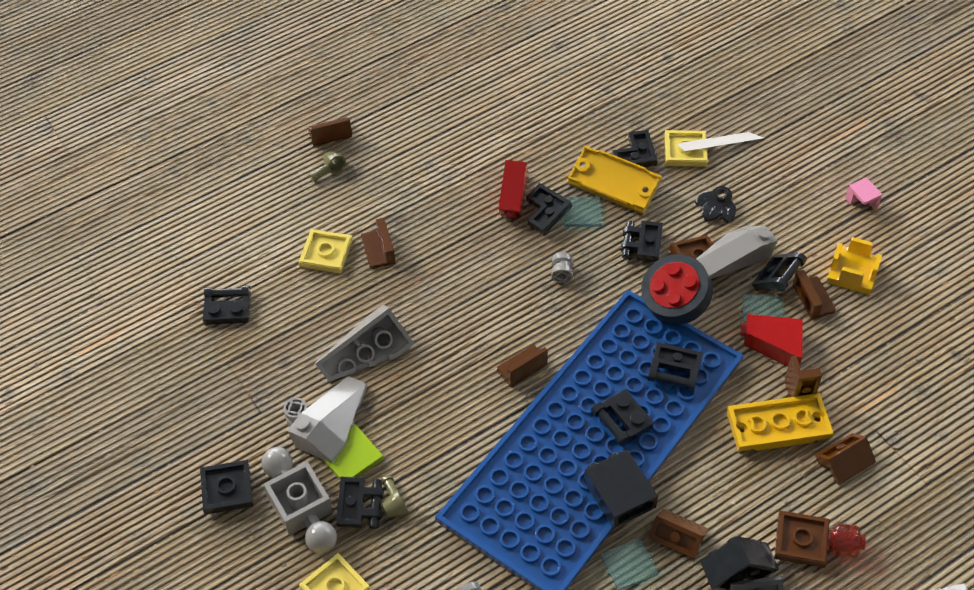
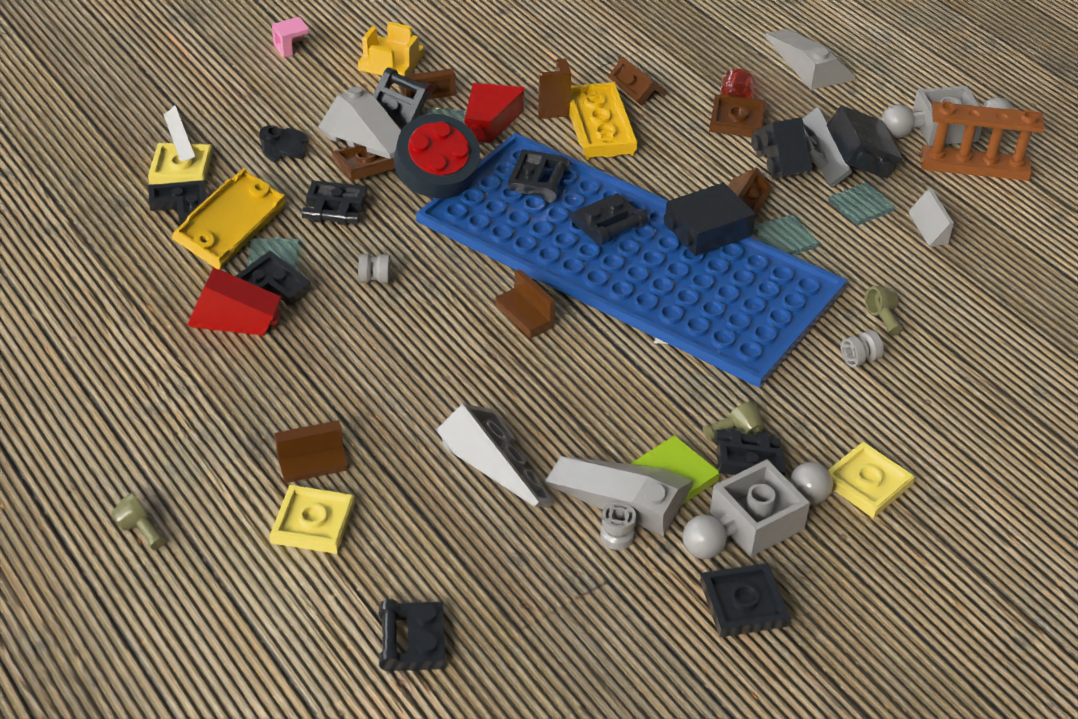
camera: 95 degrees left, 10 degrees down
(330, 131) = (56, 525): reddish brown panel -> none

